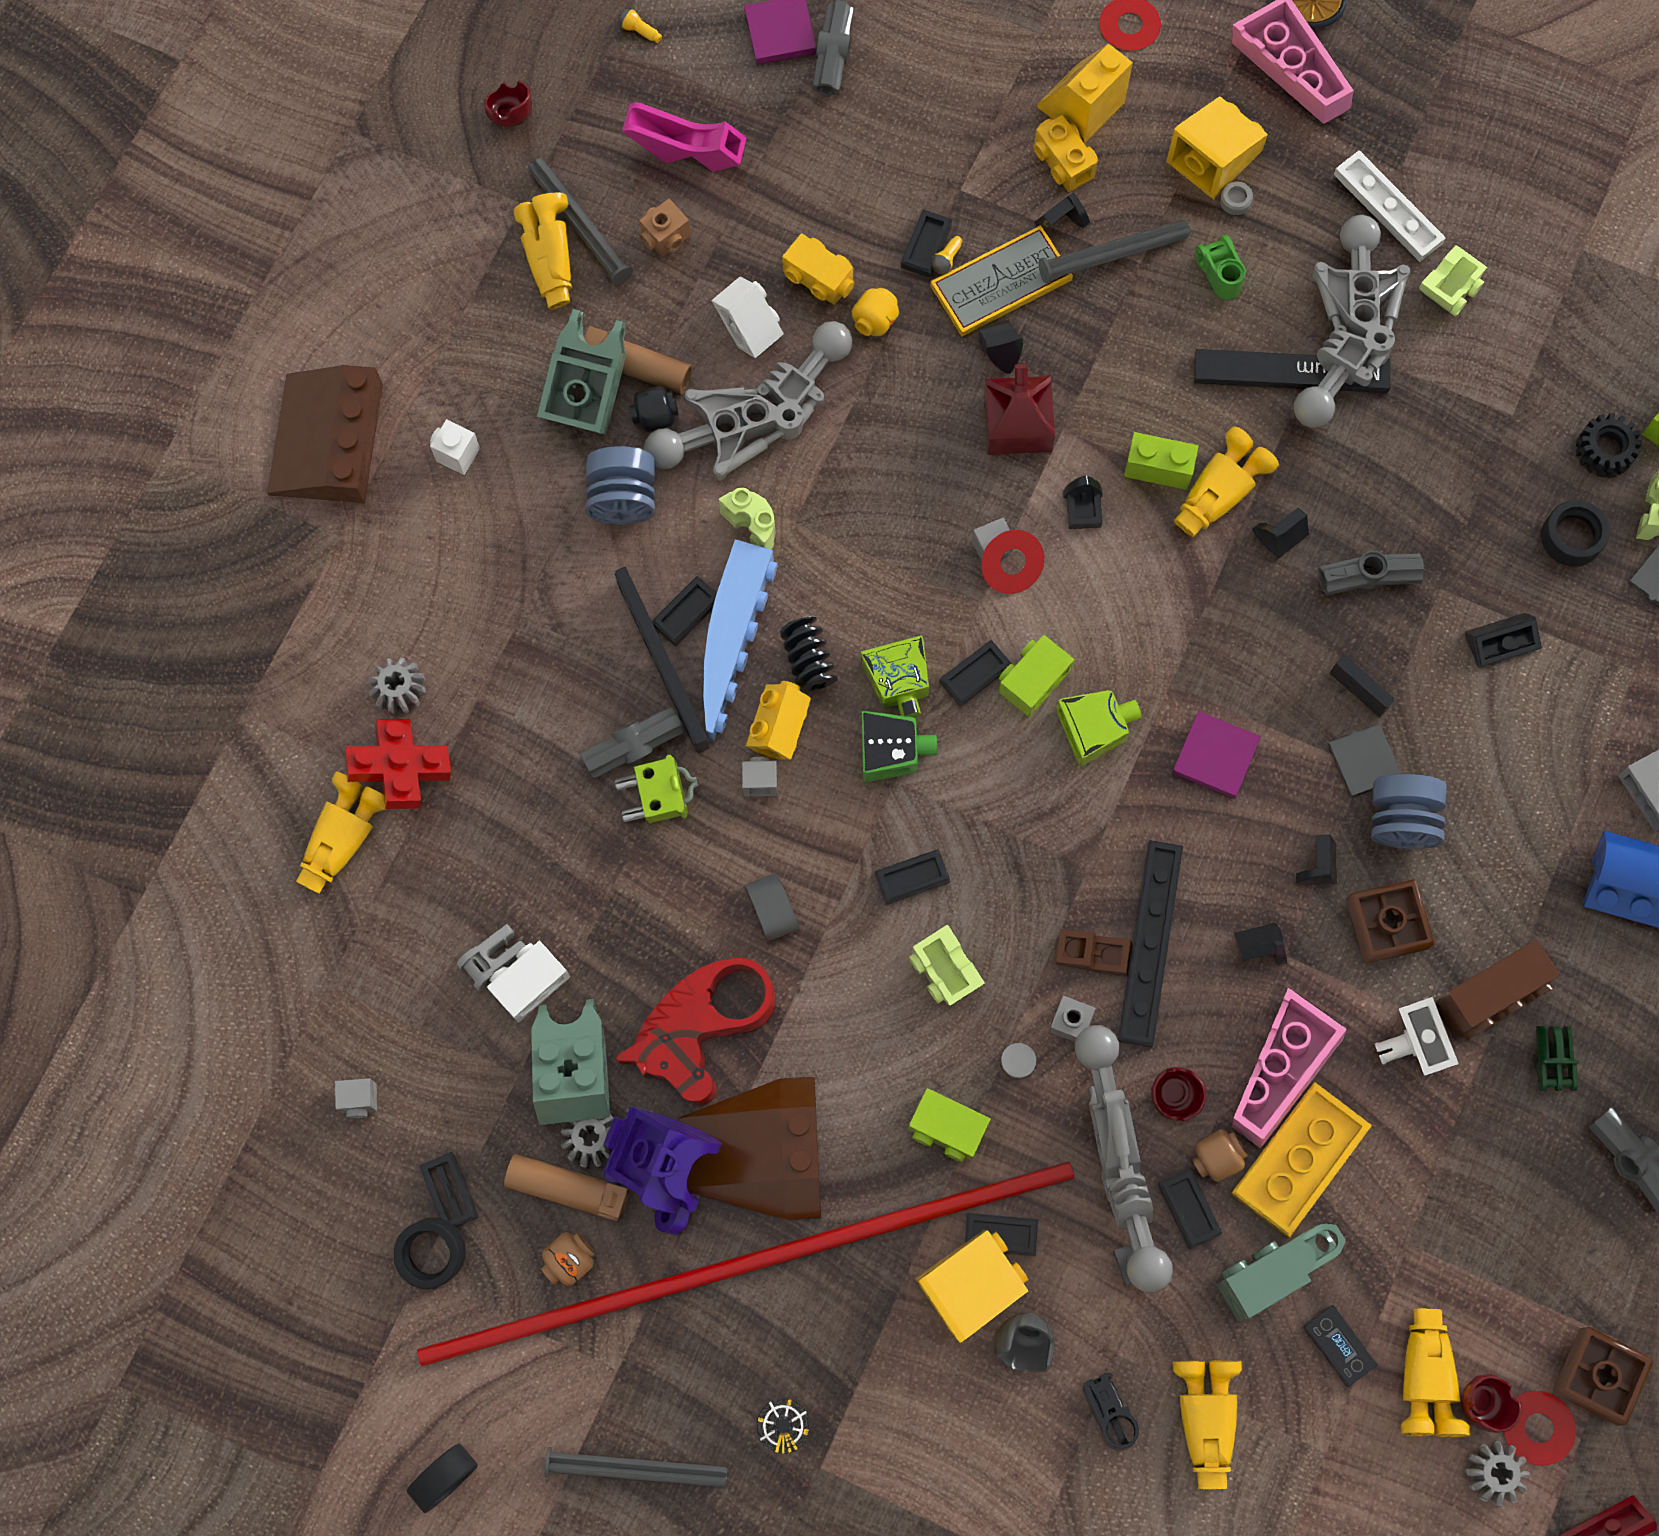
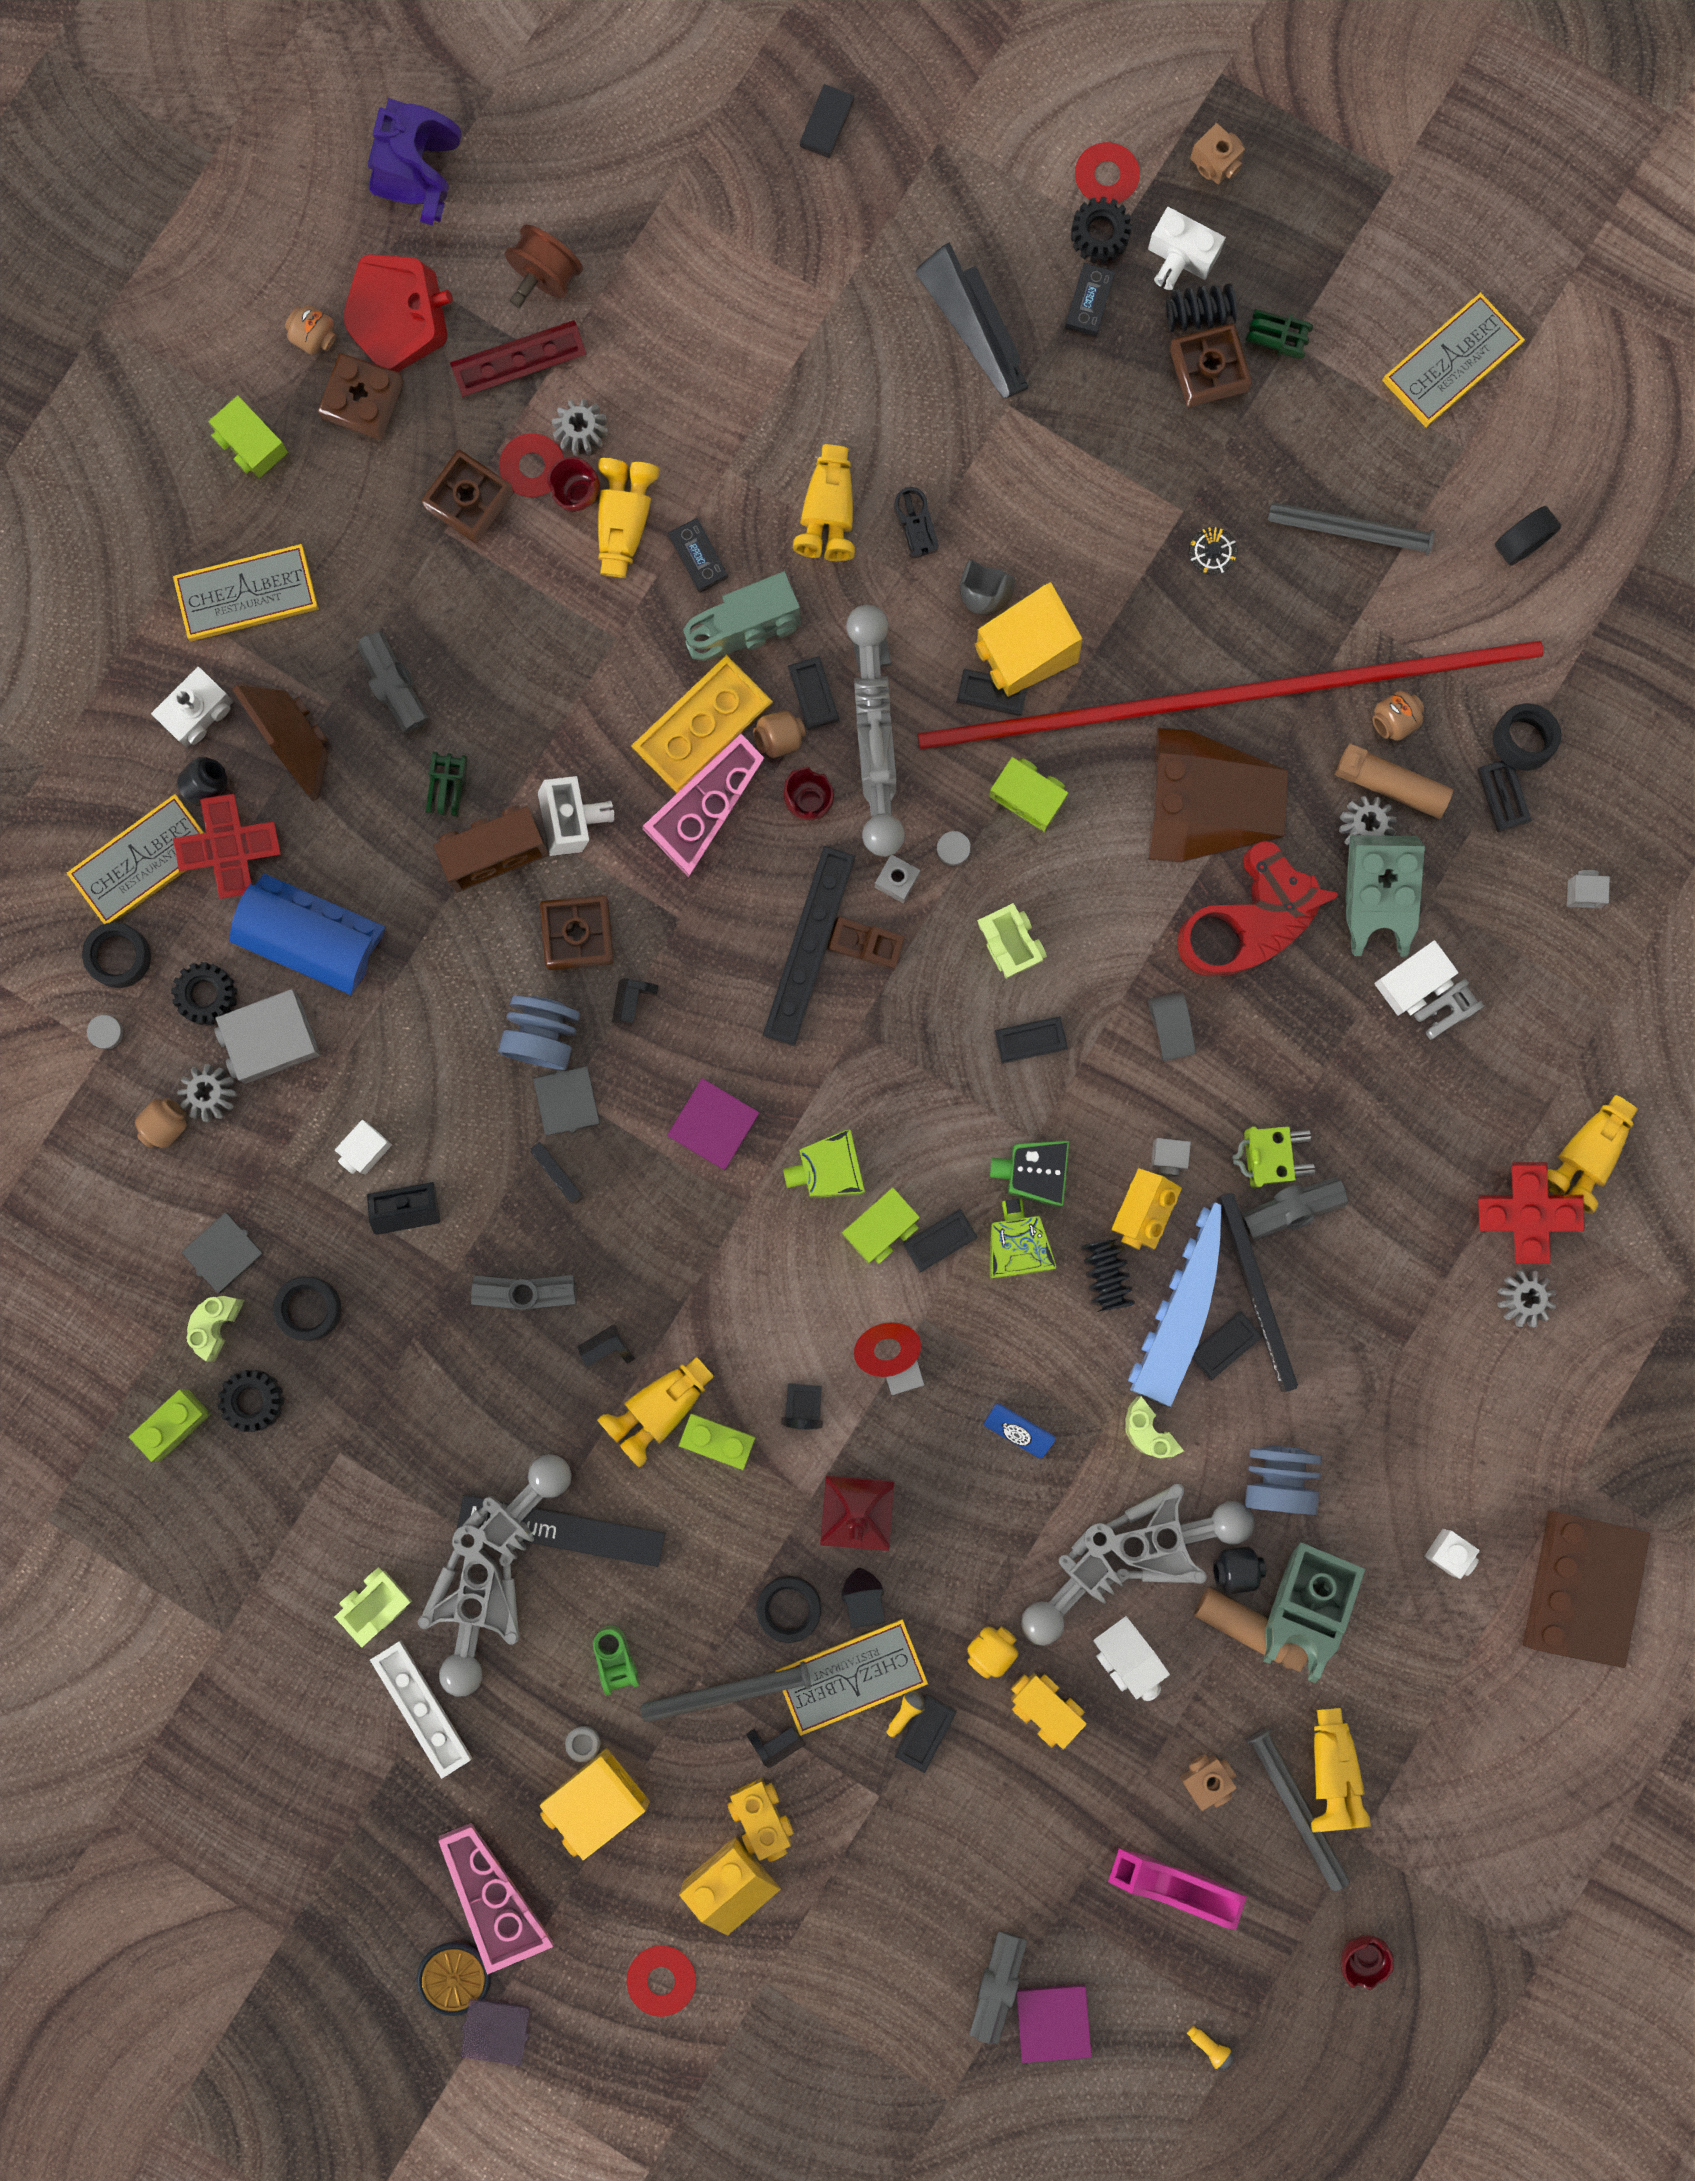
camera: 175 degrees left, 10 degrees up
(654, 1160) = (1309, 790): dark purple animal -> none
(874, 511) = (1019, 1430): none -> blue slope
(1068, 305) = (773, 1630): none -> black tyre
(1261, 942) = (704, 928): black tile -> none
(1557, 684) = (362, 1148): none -> white brick

